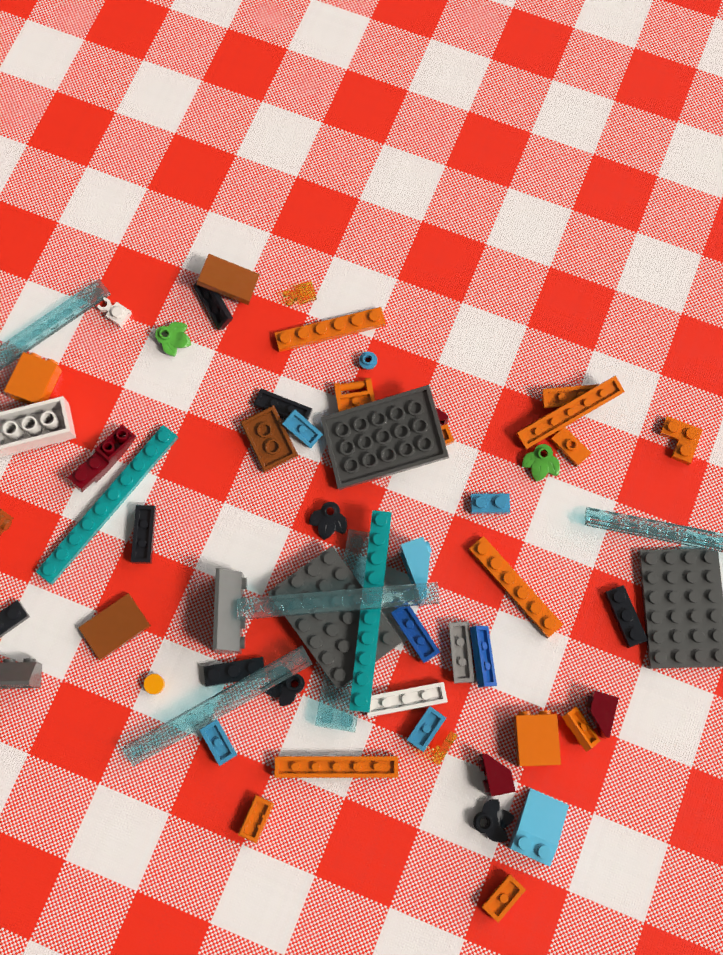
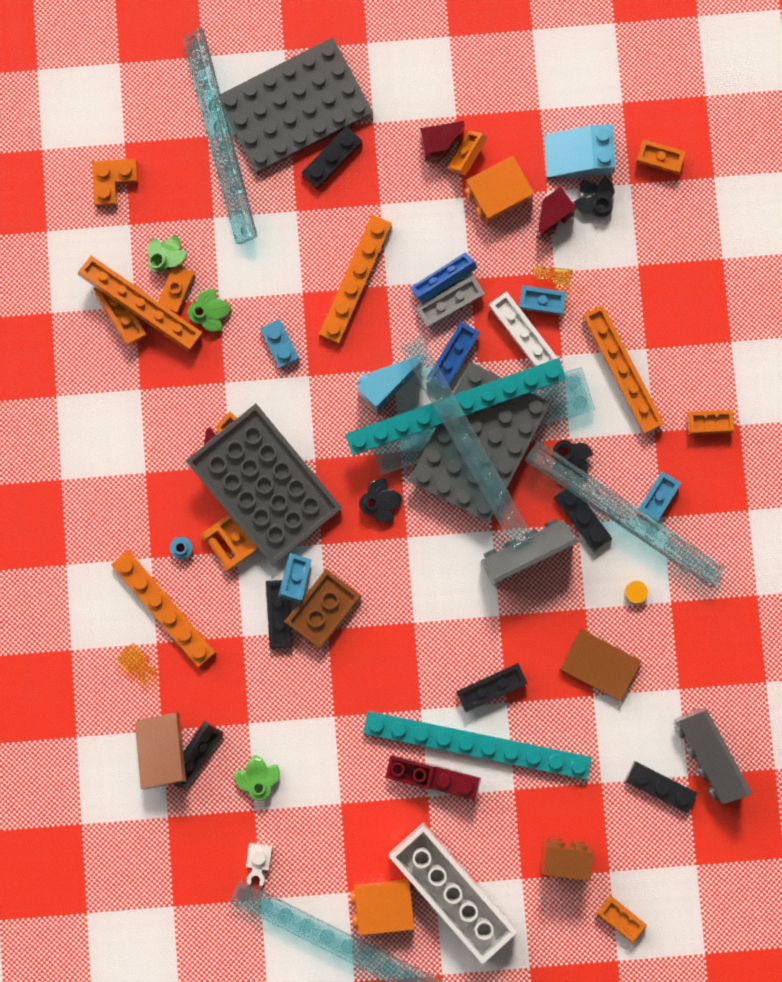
camera: 110 degrees left, 10 degrees up
(602, 451) = (167, 252): none -> bright green plate

